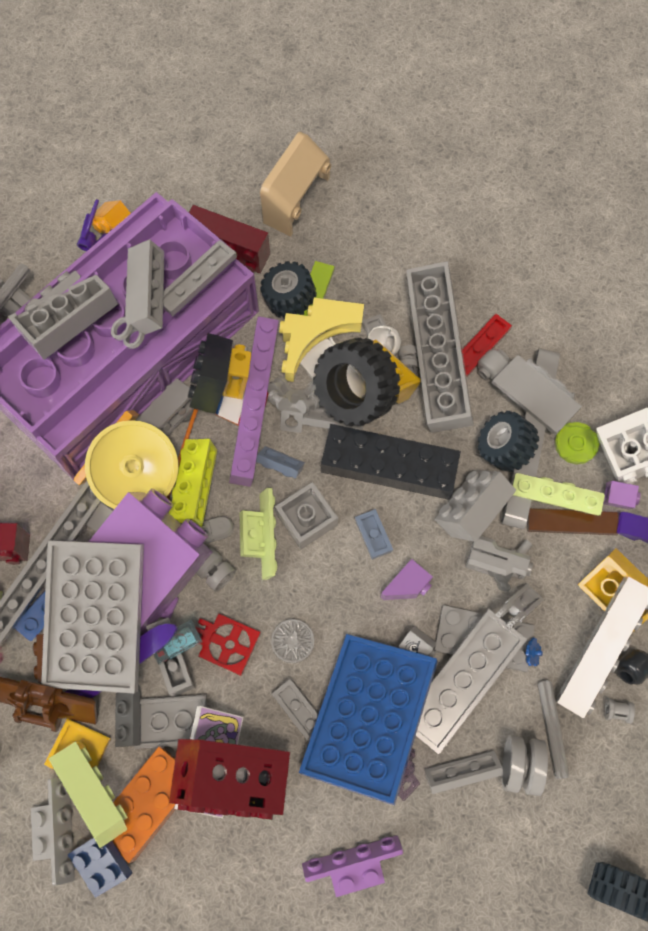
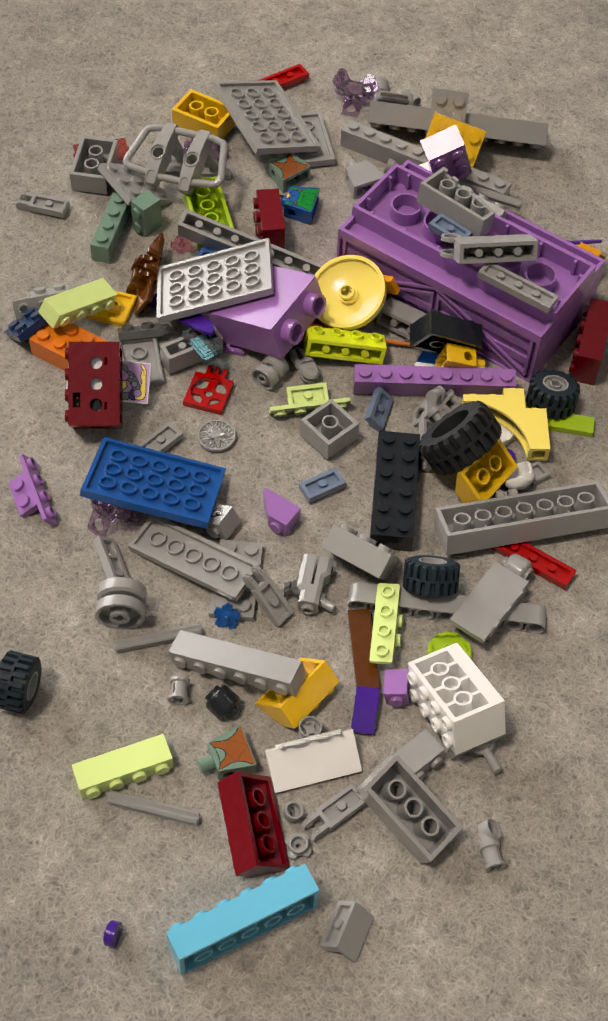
camera: 80 degrees right, 15 degrees down
(97, 331) = (443, 224): none -> sand blue plate

